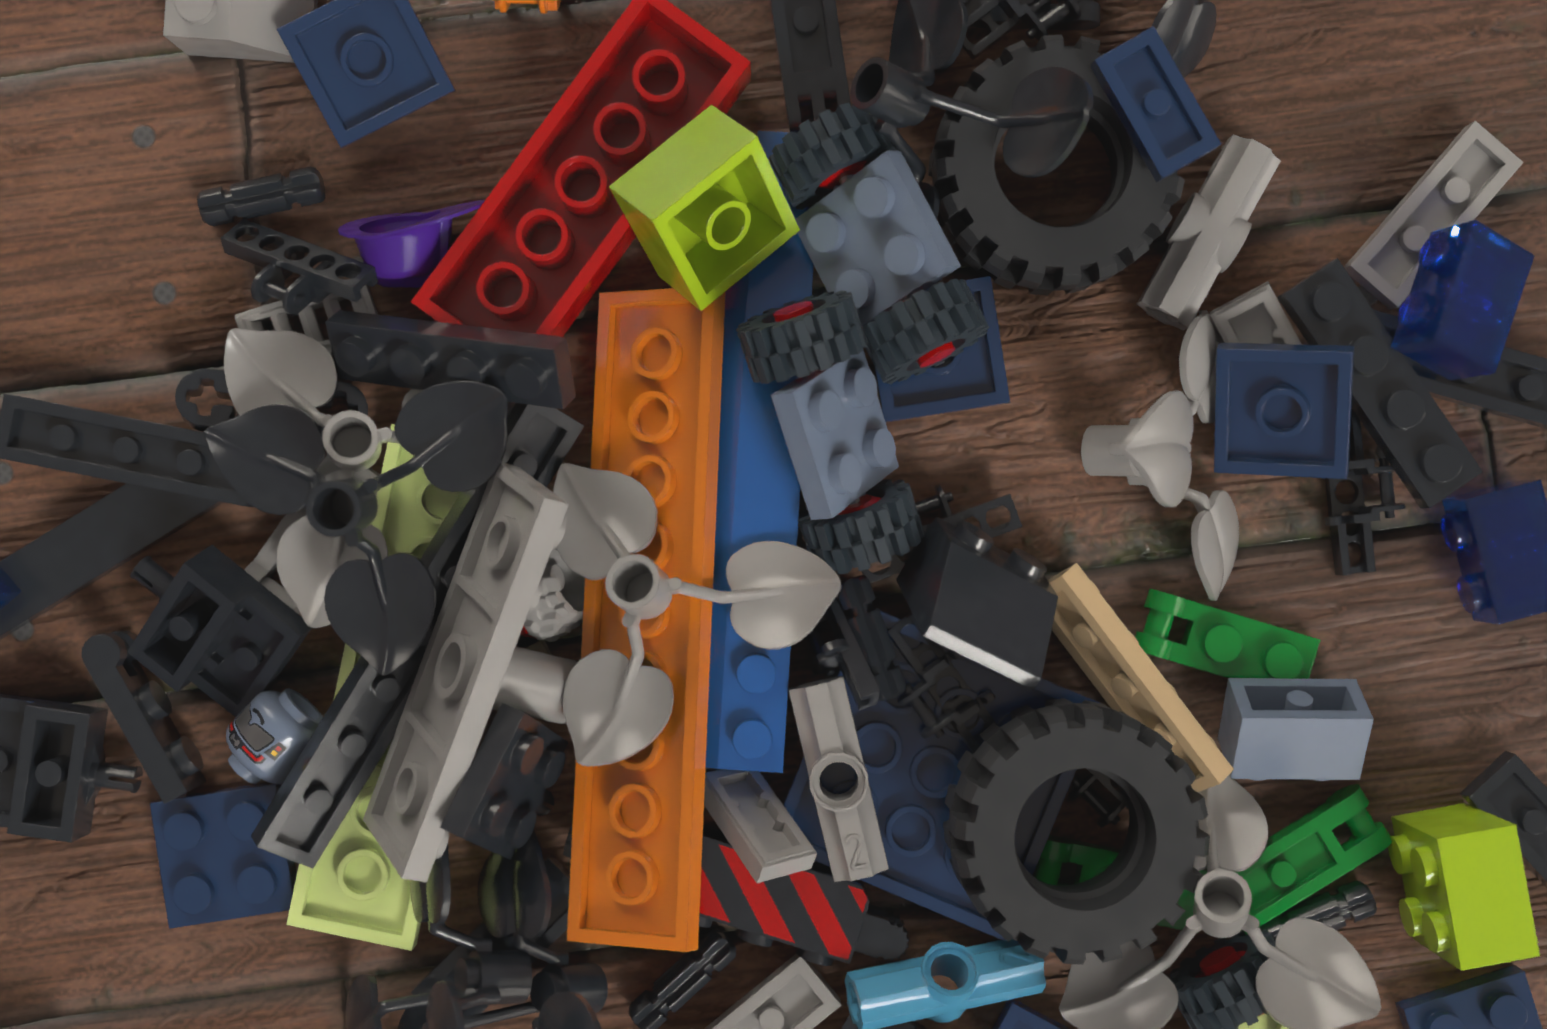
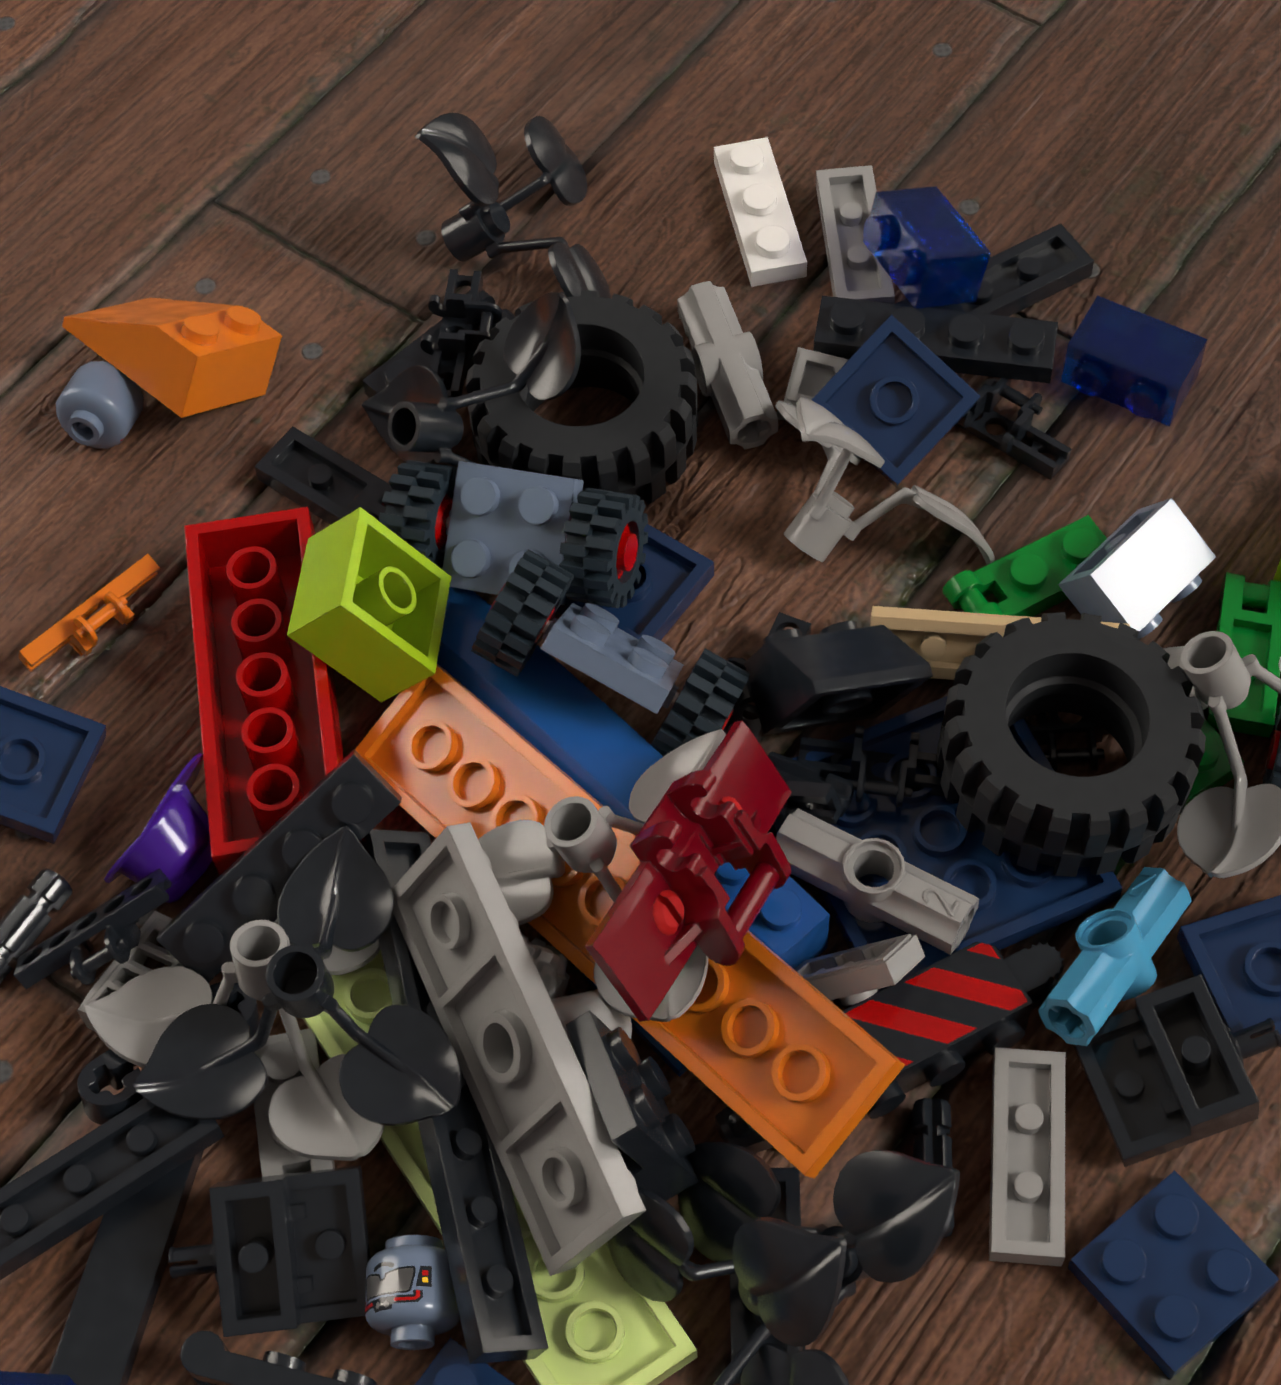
camera: 40 degrees left, 30 degrees down
(647, 691) = (673, 893): none -> dark red piece
(1155, 104) = (608, 288): dark blue plate -> none
(1395, 104) = (760, 212): none -> white plate

